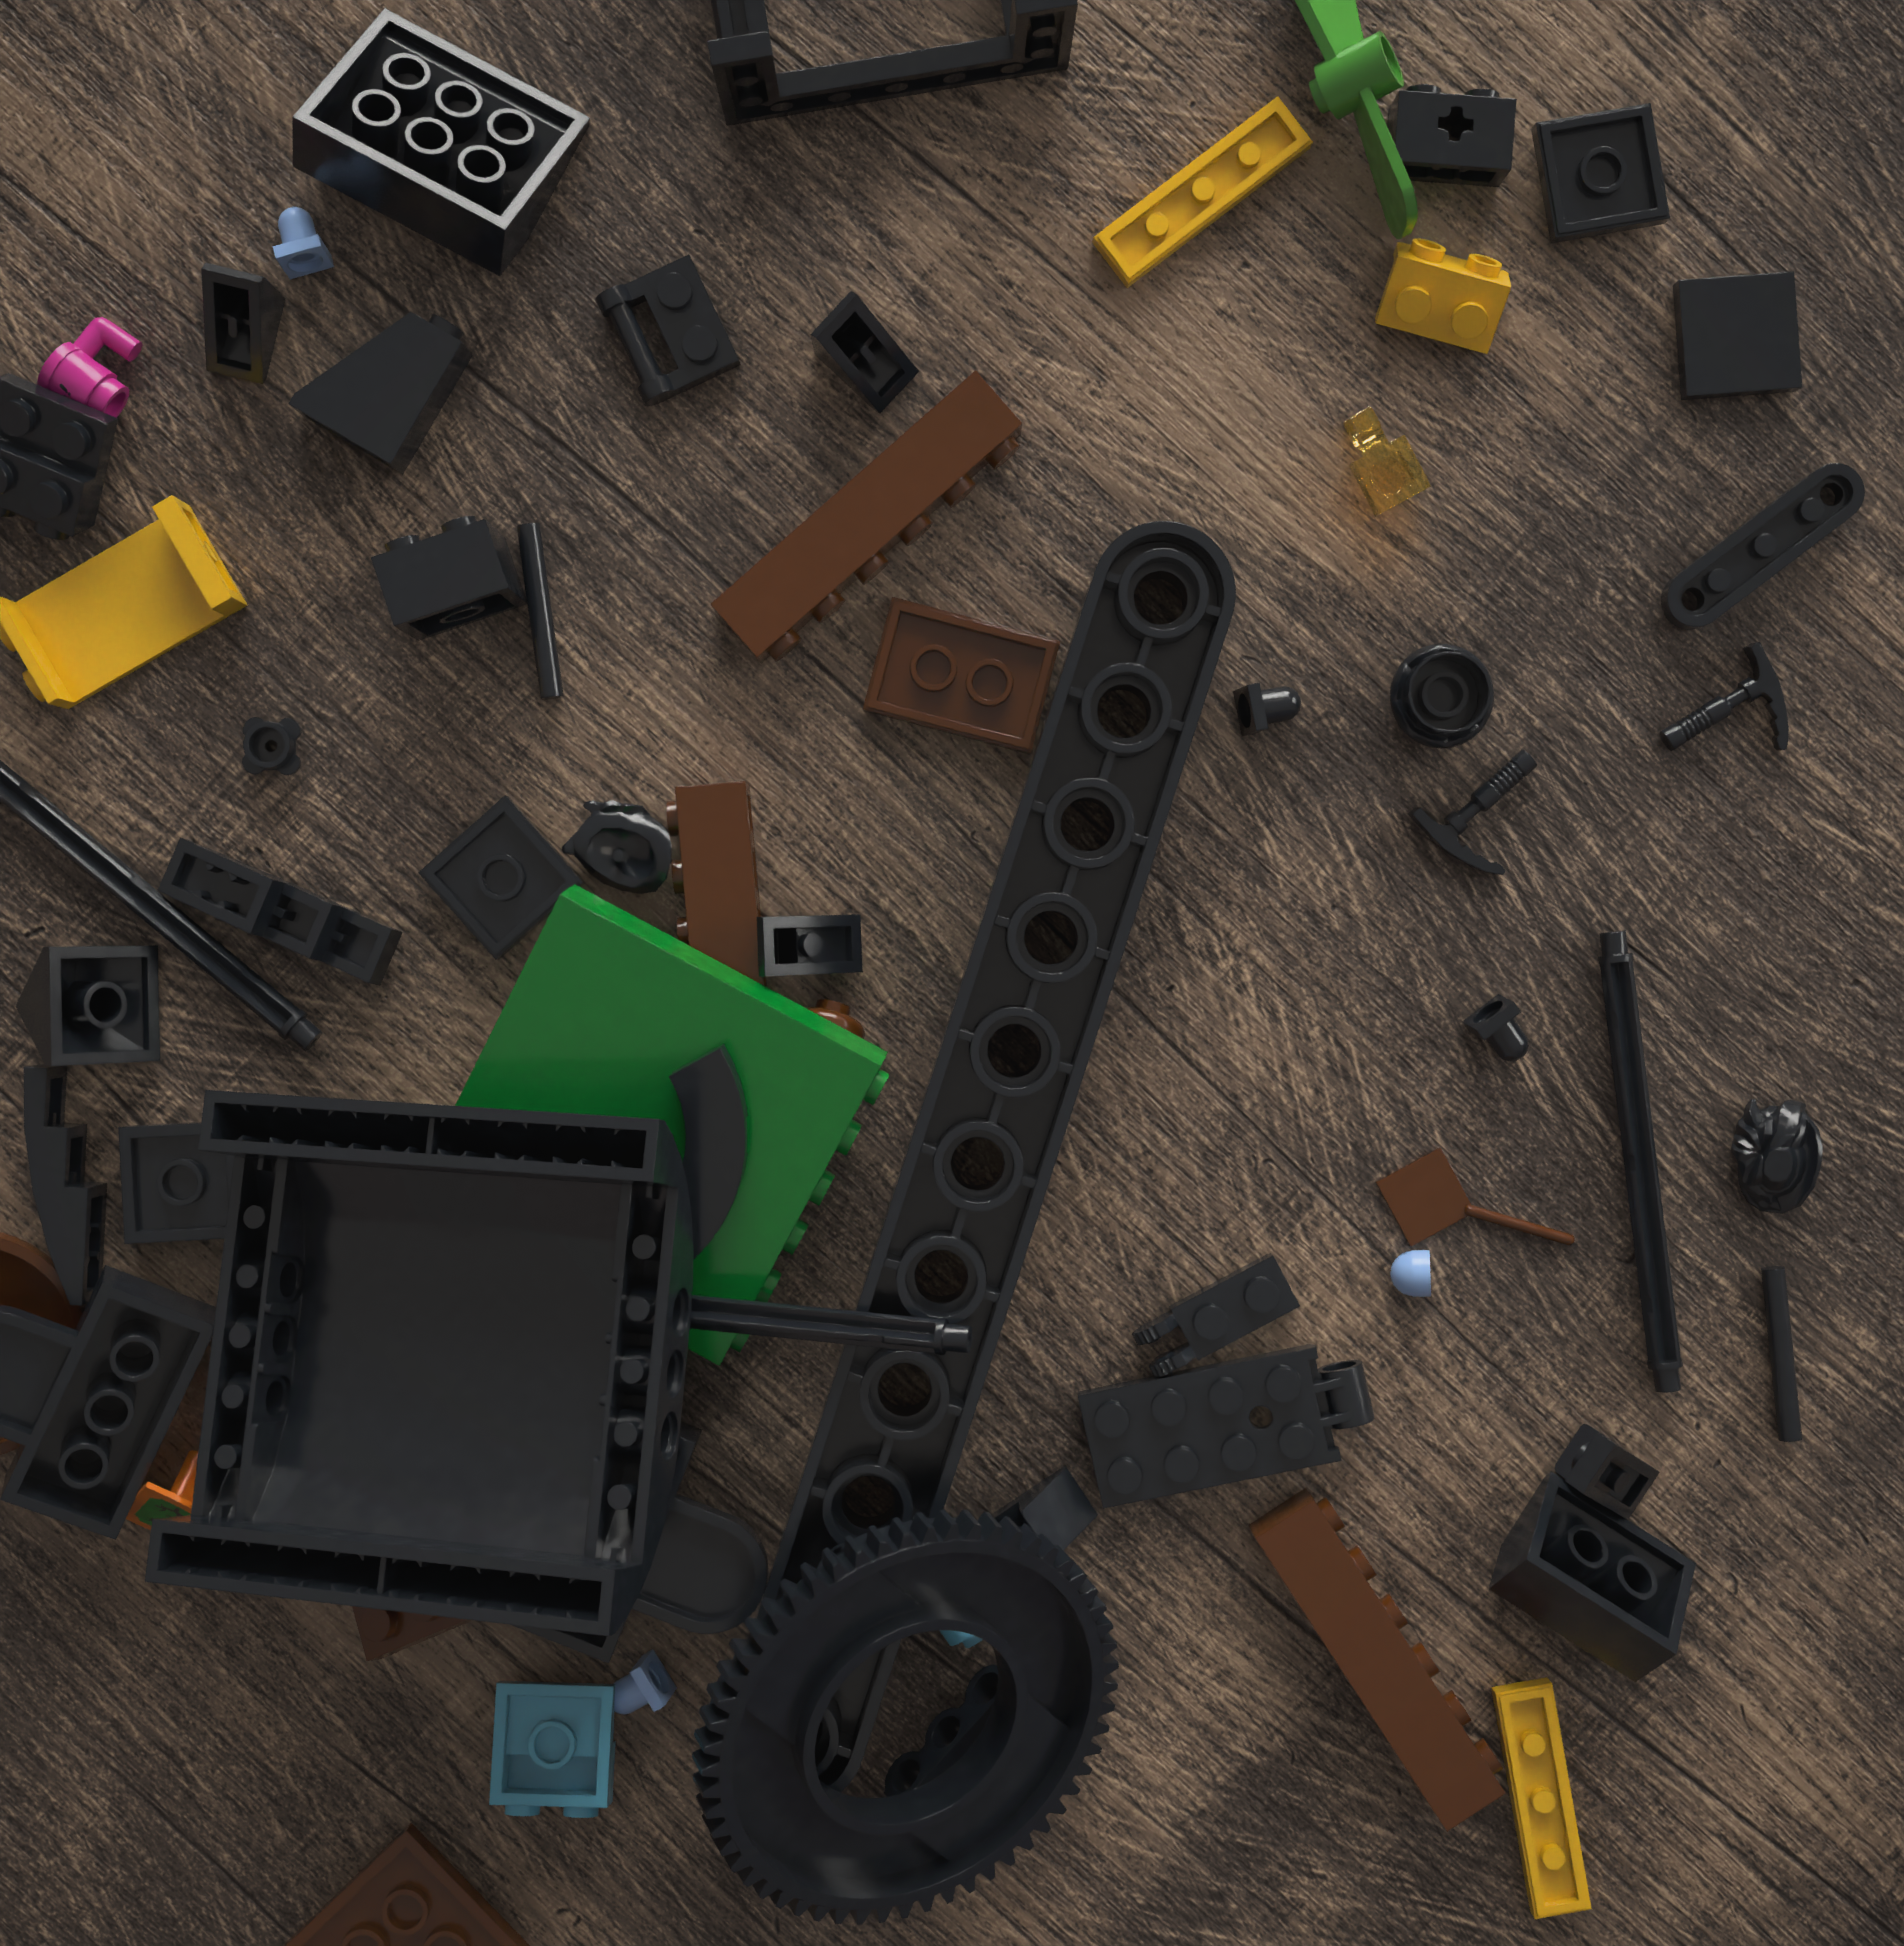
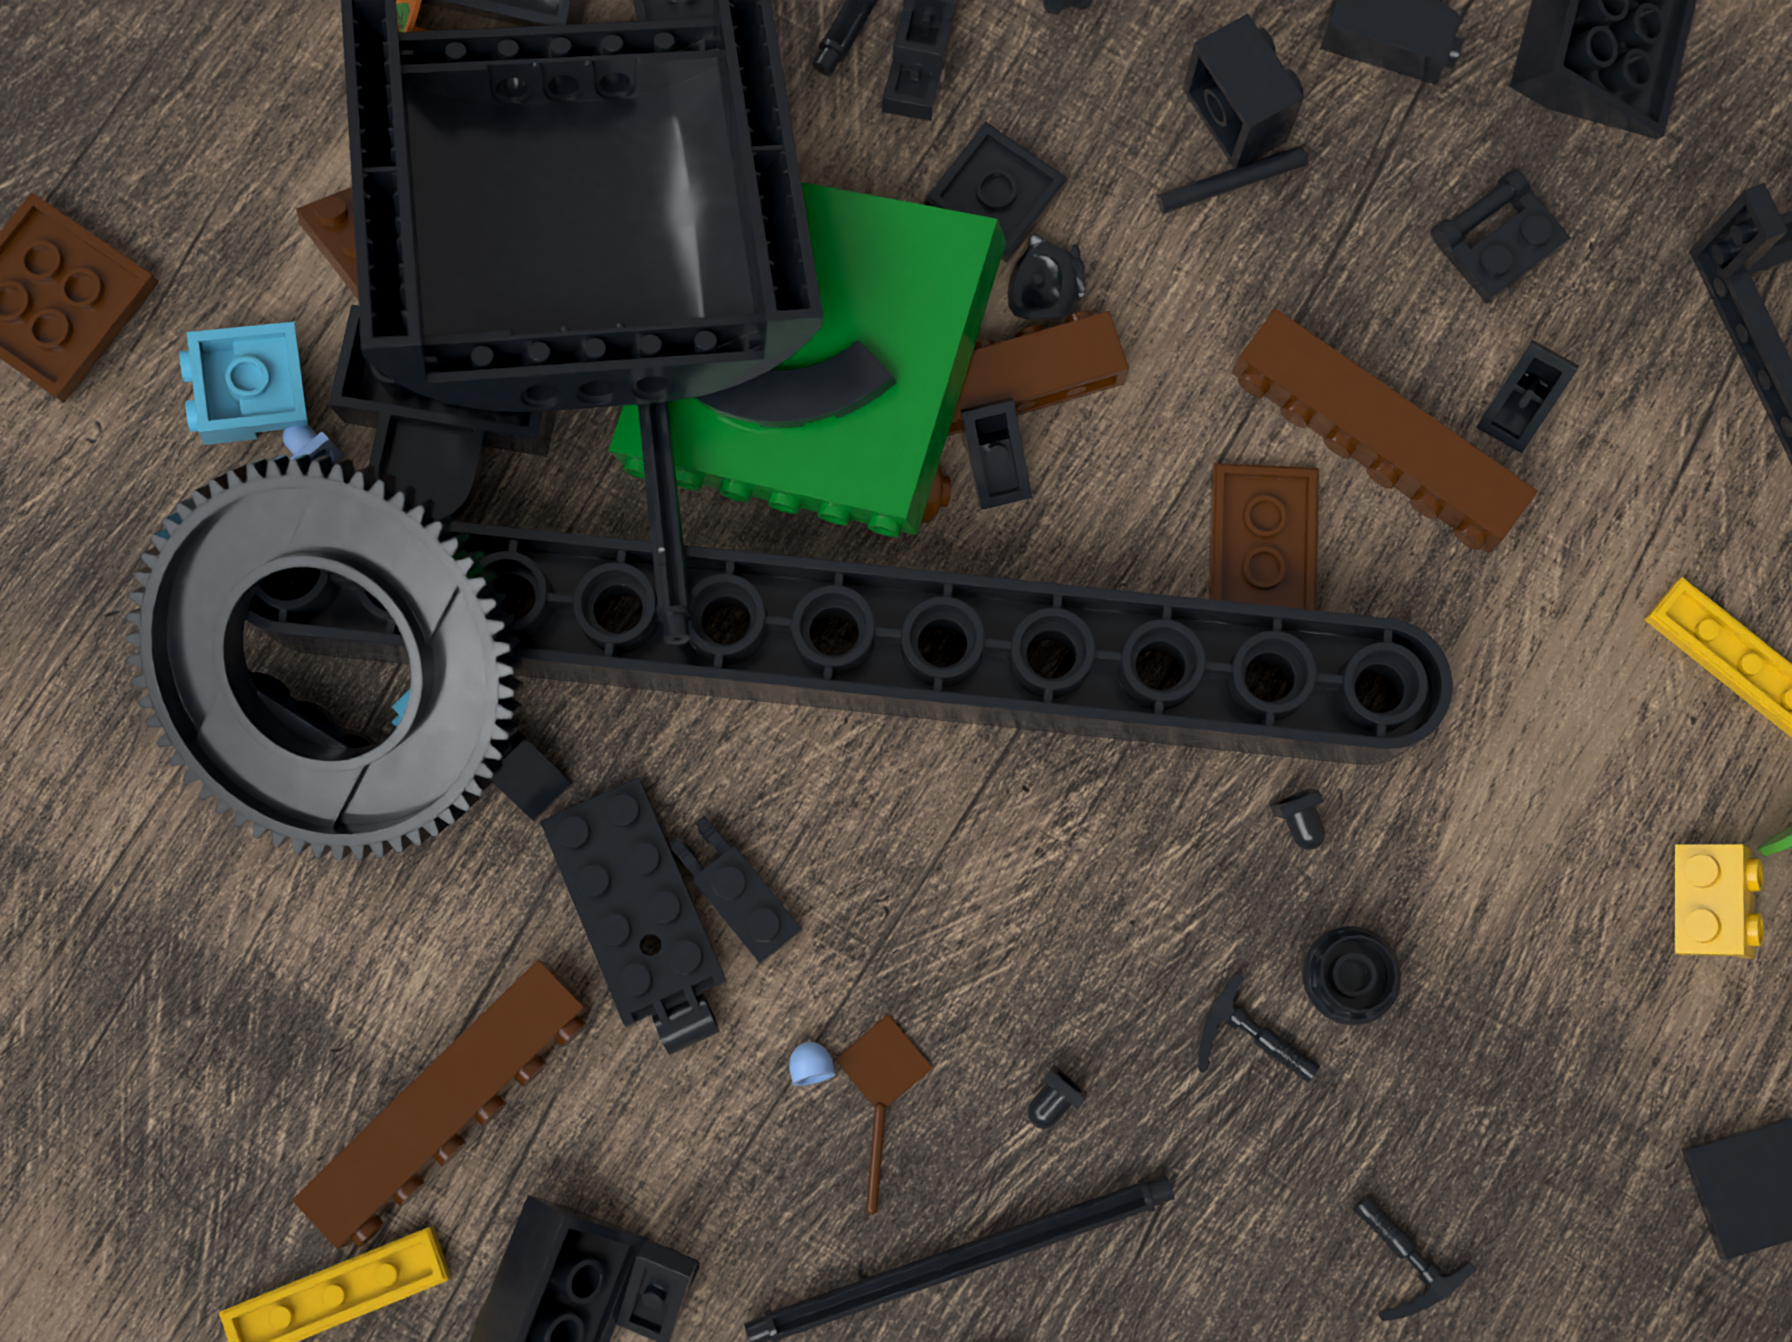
camera: 85 degrees right, 10 degrees down
(1388, 469) = (1546, 881): clear yellow plate -> none
(1763, 546) = (1568, 1254): black plate -> none

